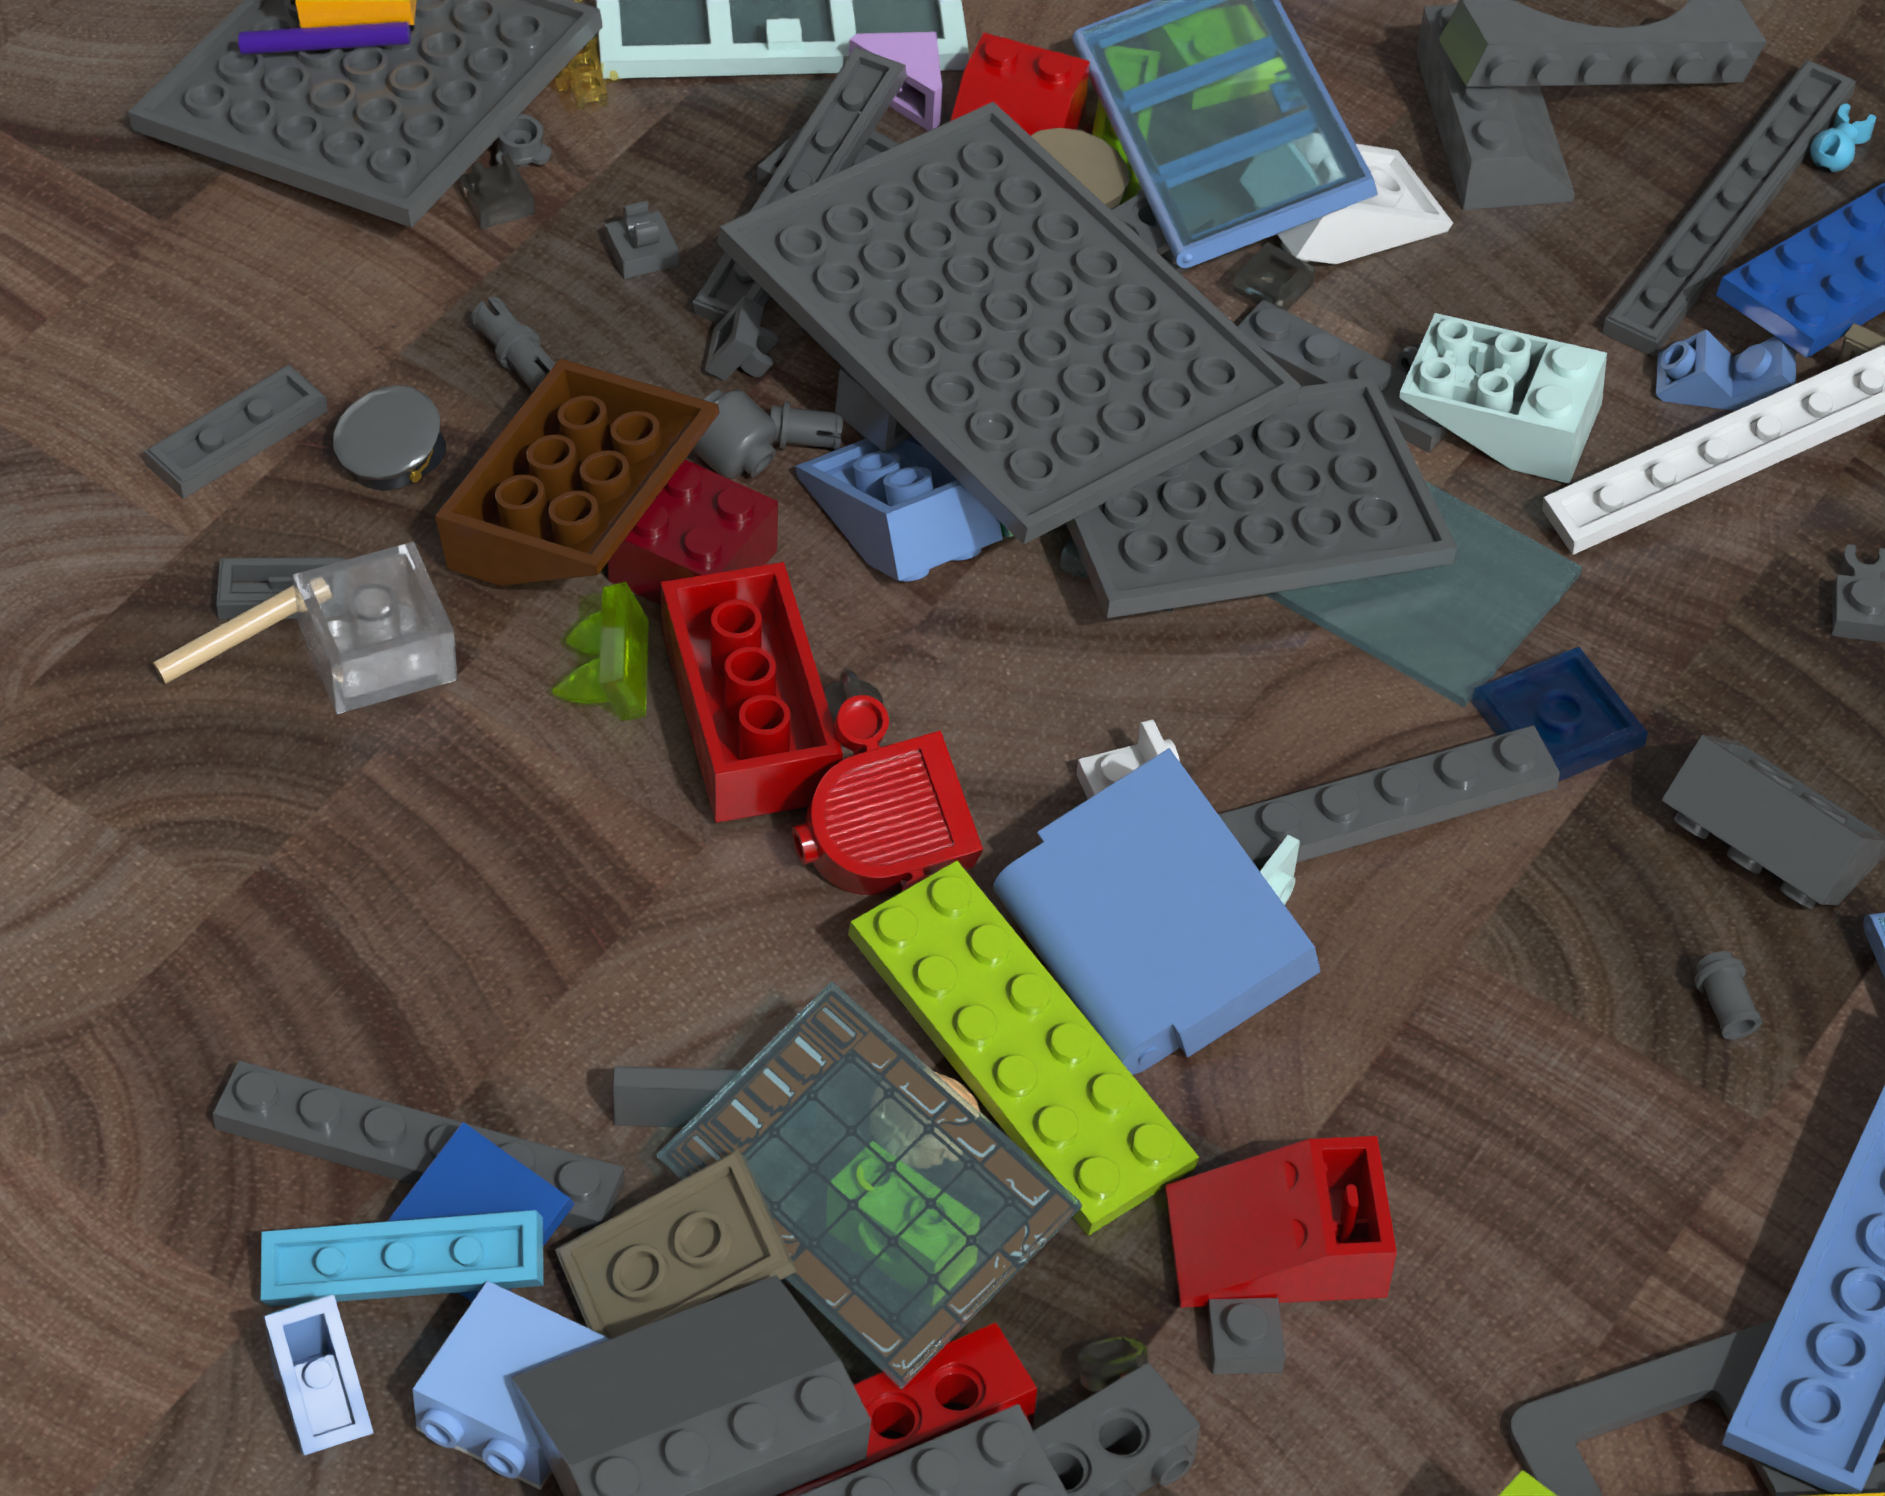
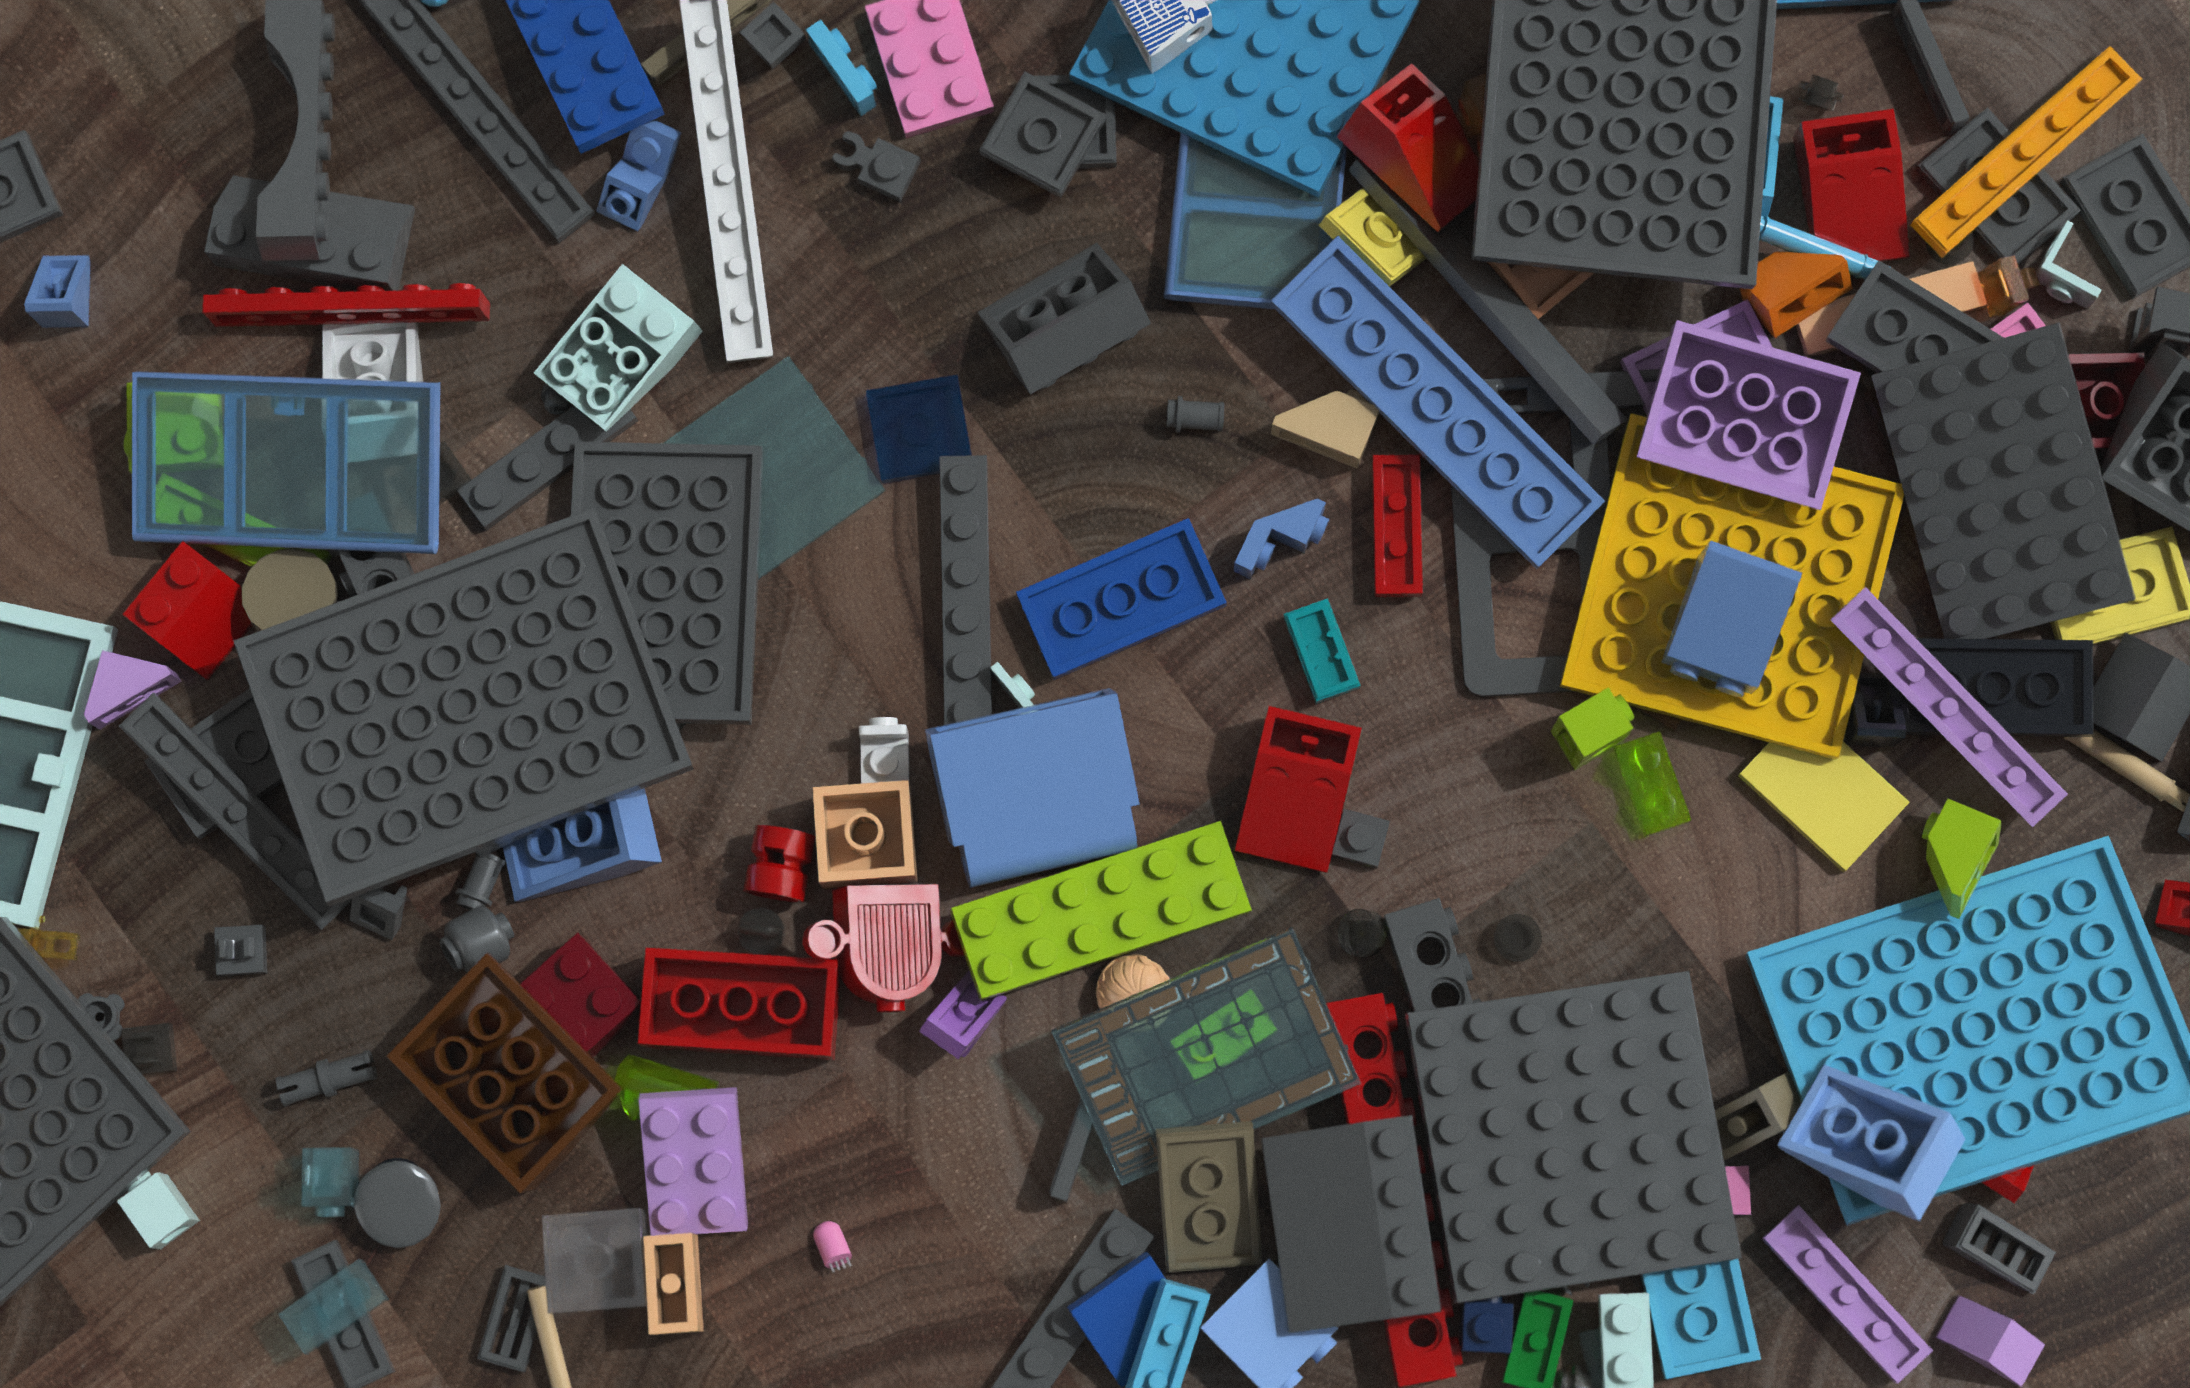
camera: 65 degrees left, 30 degrees up
(243, 398) = (333, 1306): none -> clear light blue plate
(310, 234) = (157, 1209): none -> light aqua brick
(370, 708) = (673, 1284): none -> light nougat brick
(396, 357) = (329, 1179): none -> clear light blue brick
(473, 879) = (832, 1245): none -> bright pink piece
(532, 694) = (693, 1161): none -> lavender plate
(814, 928) = (961, 1018): none -> medium lavender slope
(944, 692) = (775, 880): none -> red wheel
(1019, 760) = (865, 834): none -> light nougat brick
(1428, 151) = (329, 306): none -> red plate
(1446, 973) = (1121, 598): none -> blue plate
(1483, 1217) = (1321, 651): none -> teal plate
(1641, 1138) = (1291, 527): none -> medium blue slope
(1697, 1262) = (1397, 526): none -> red plate
(1793, 1145) = (1330, 426): none -> tan slope

